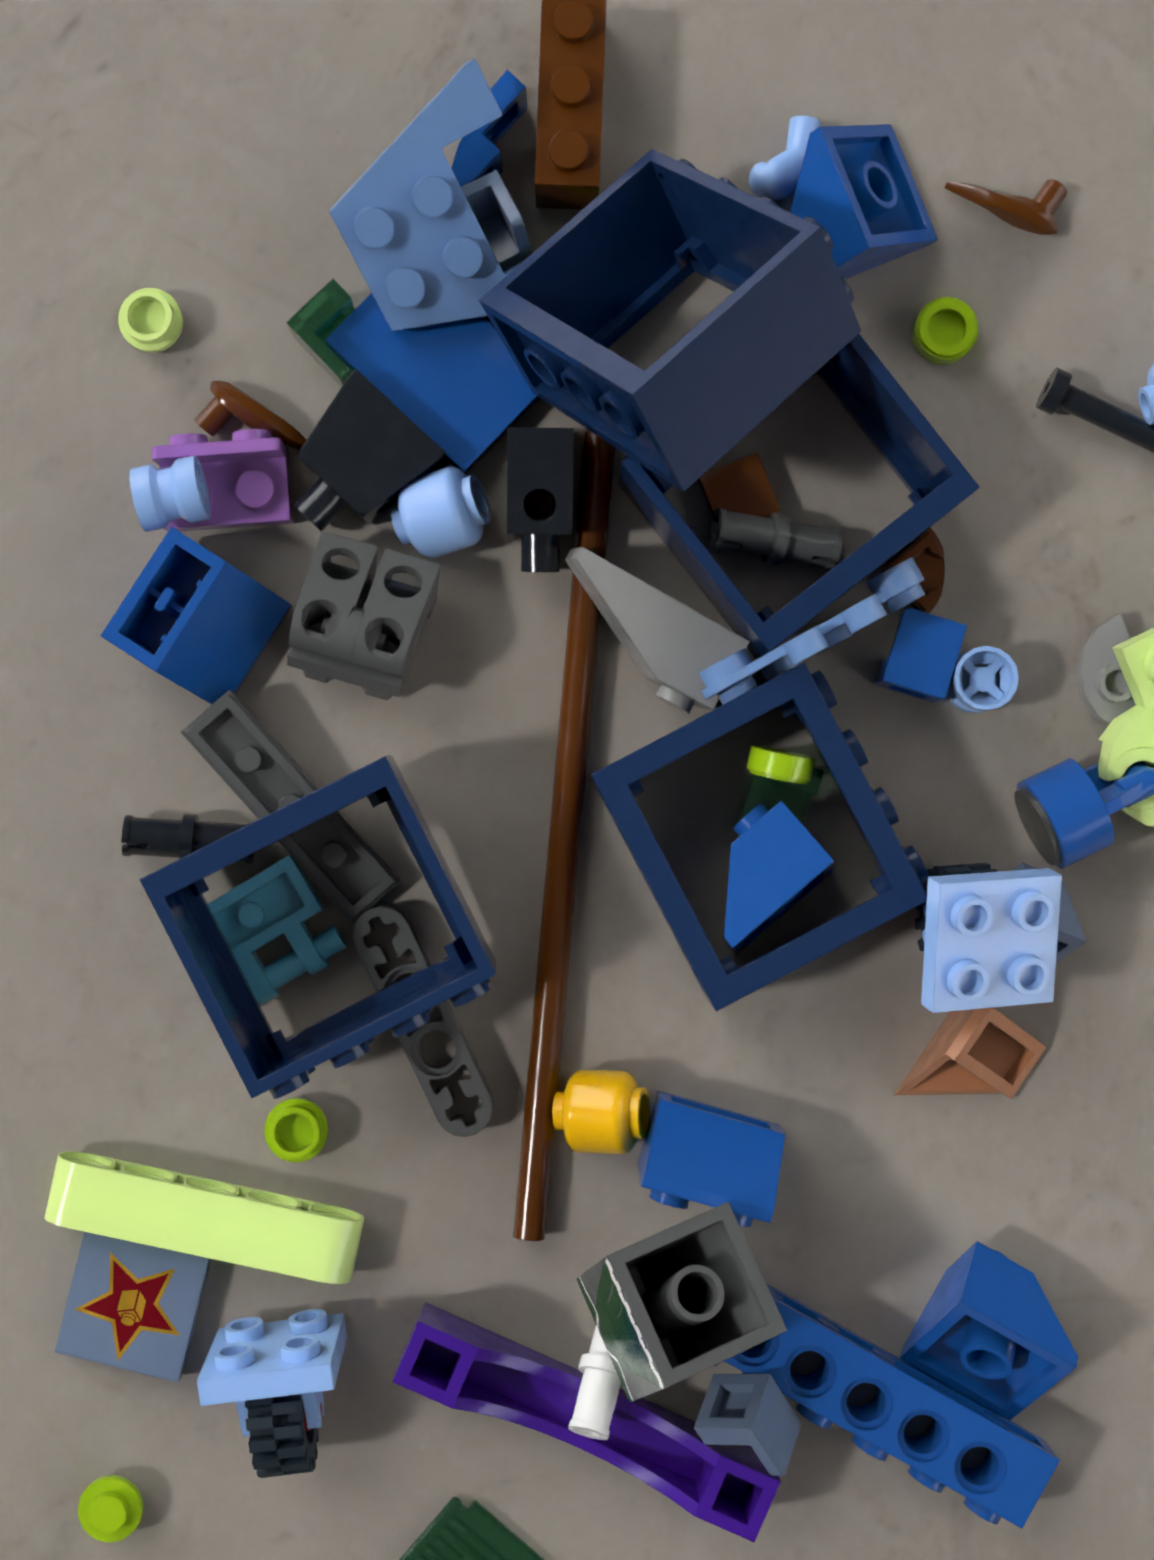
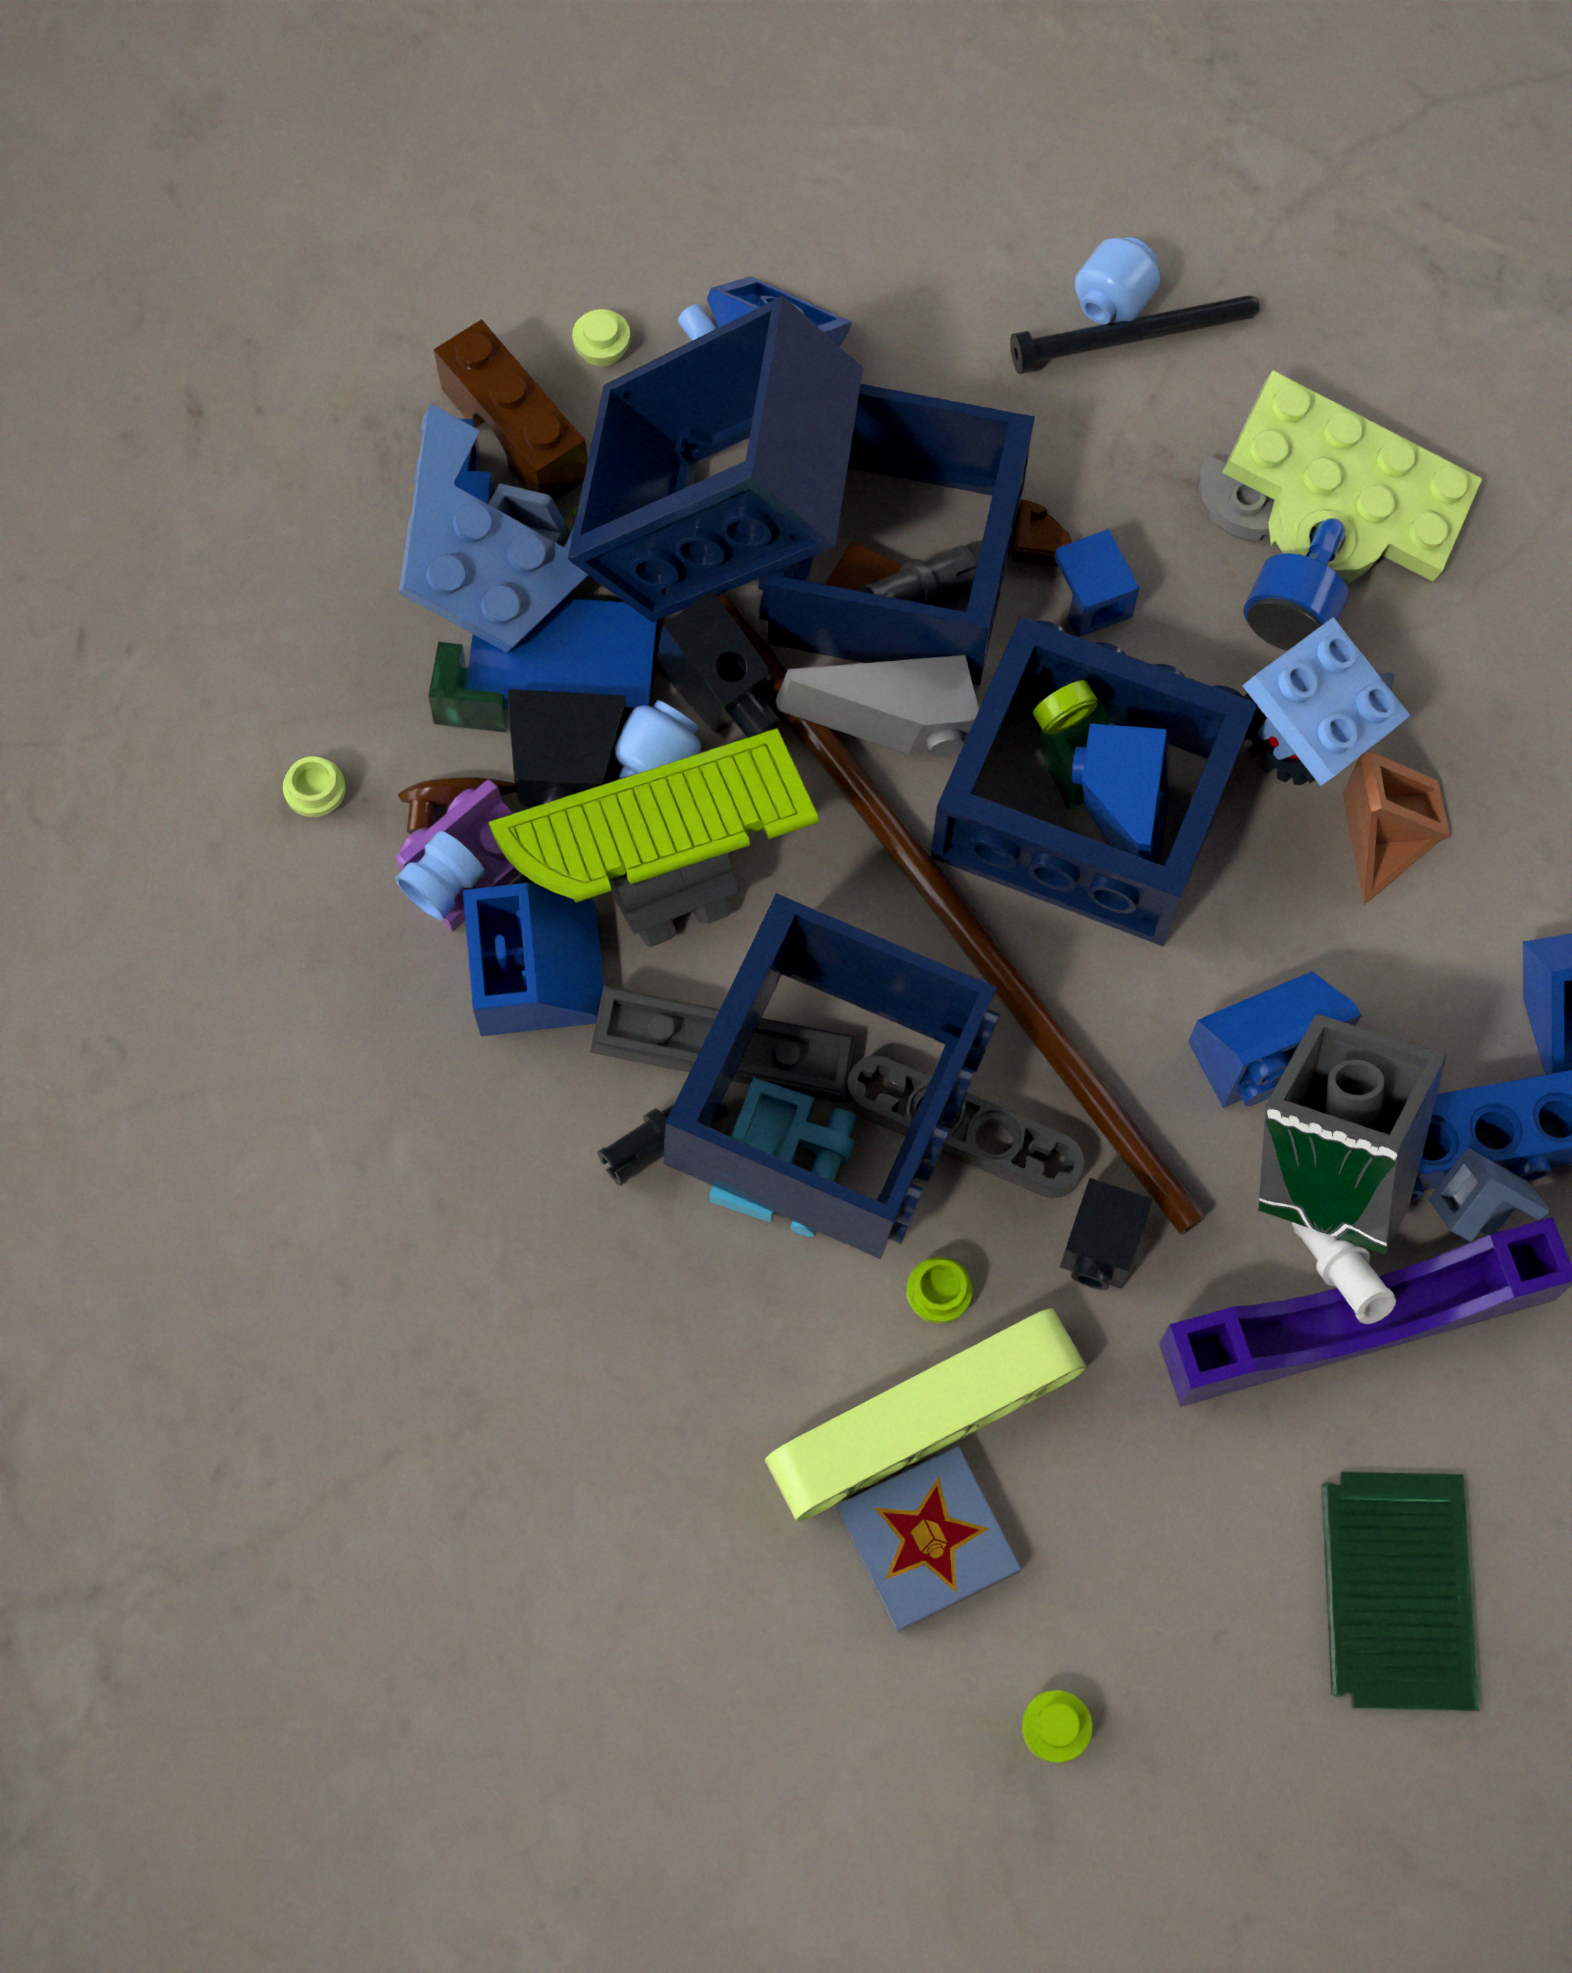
camera: 40 degrees left, 20 degrees down
(277, 1382) = (1109, 1486): light blue plate -> none
(376, 592) = (658, 818): none -> lime piece
(449, 1197) = (1105, 1235): none -> black brick
(602, 1111) = (1162, 1077): yellow head -> none
(711, 82) = (601, 337): none -> yellowish green plate
(734, 673) = (976, 669): medium blue plant -> none
(945, 330) = (911, 369): lime tile -> none
(990, 673) = (1156, 563): light blue wheel -> none
(1018, 211) = (892, 263): reddish brown bar -> none

